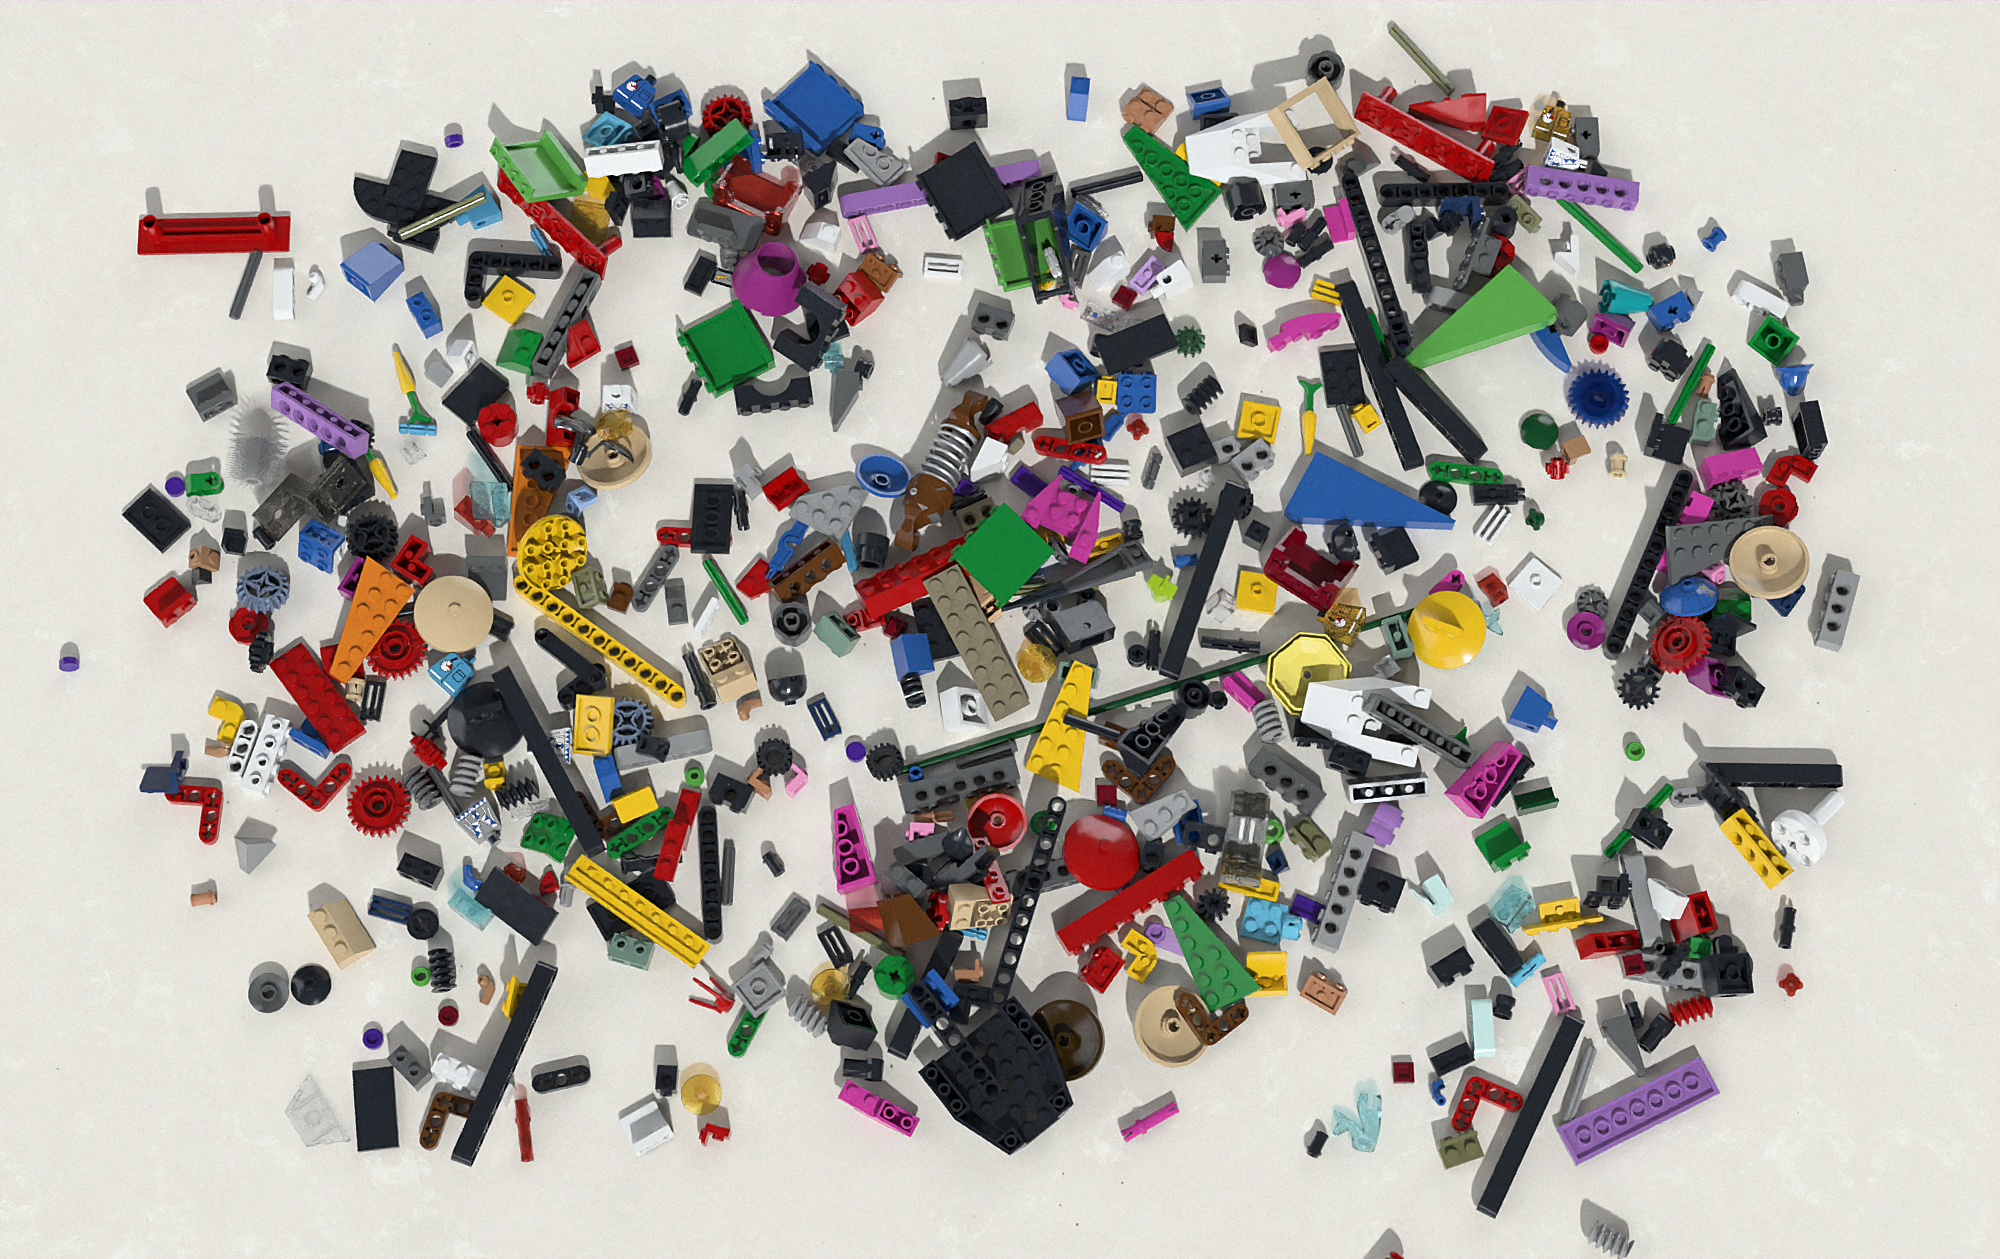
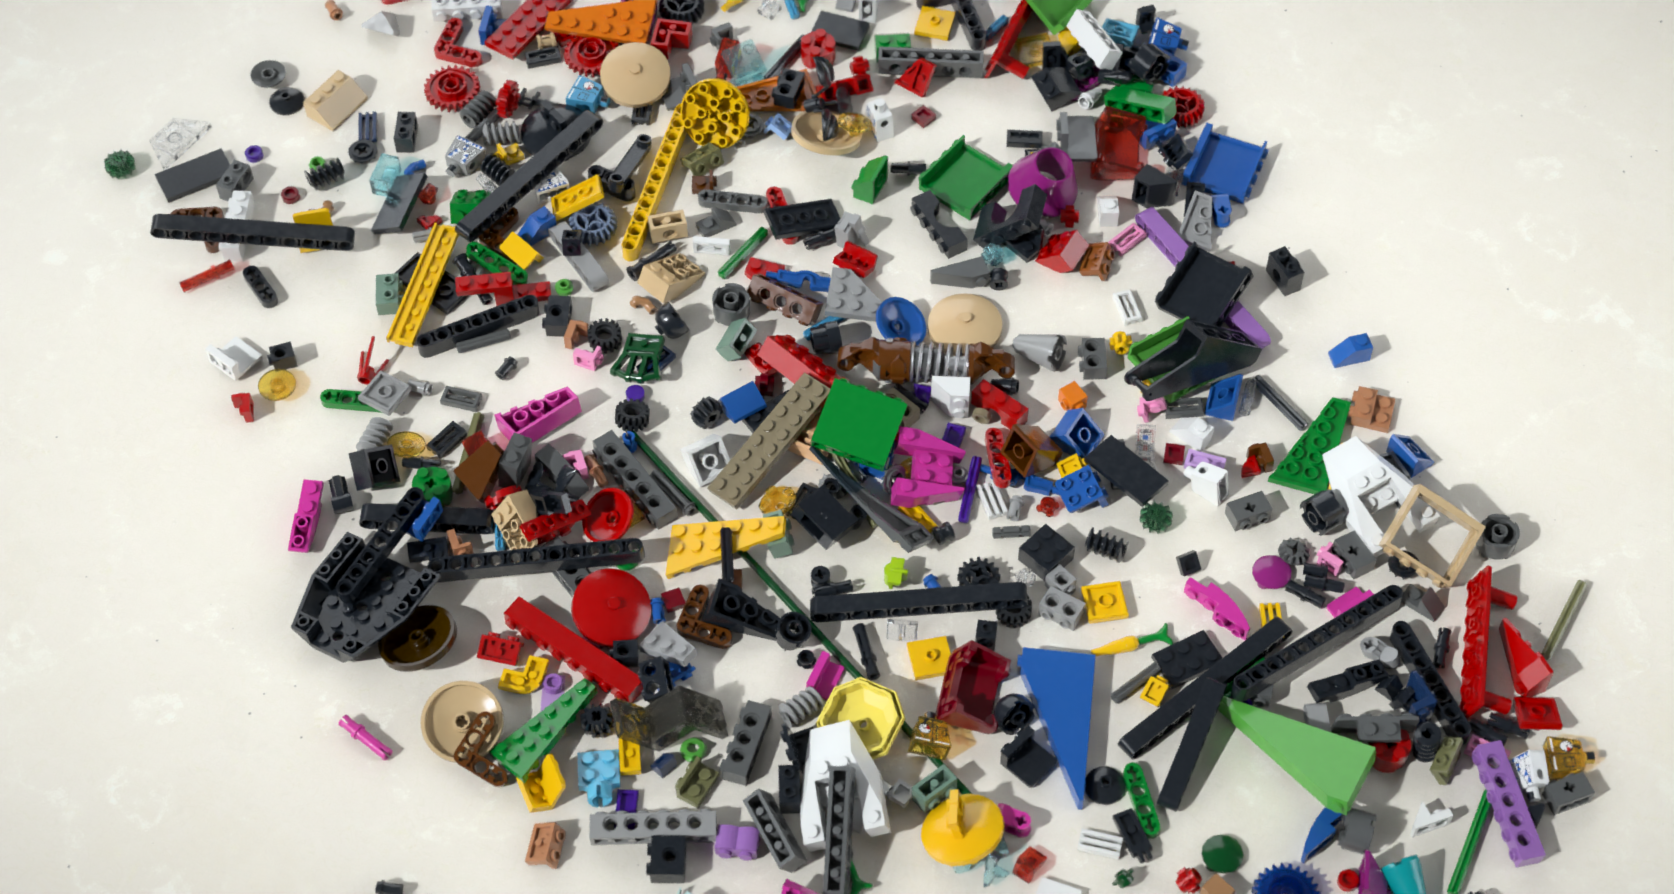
camera: 70 degrees right, 15 degrees down
(321, 1180) = (119, 164): none -> clear green gear
(667, 650) = (667, 226): none -> tan brick
(692, 437) = (871, 180): none -> green slope
(809, 725) = (640, 347): none -> dark green plate
(902, 420) = (964, 321): none -> tan dish
(986, 290) = (1120, 342): none -> yellow gear
(1031, 358) = (1072, 397): none -> orange brick
(1130, 458) = (1016, 503): none -> light grey pin

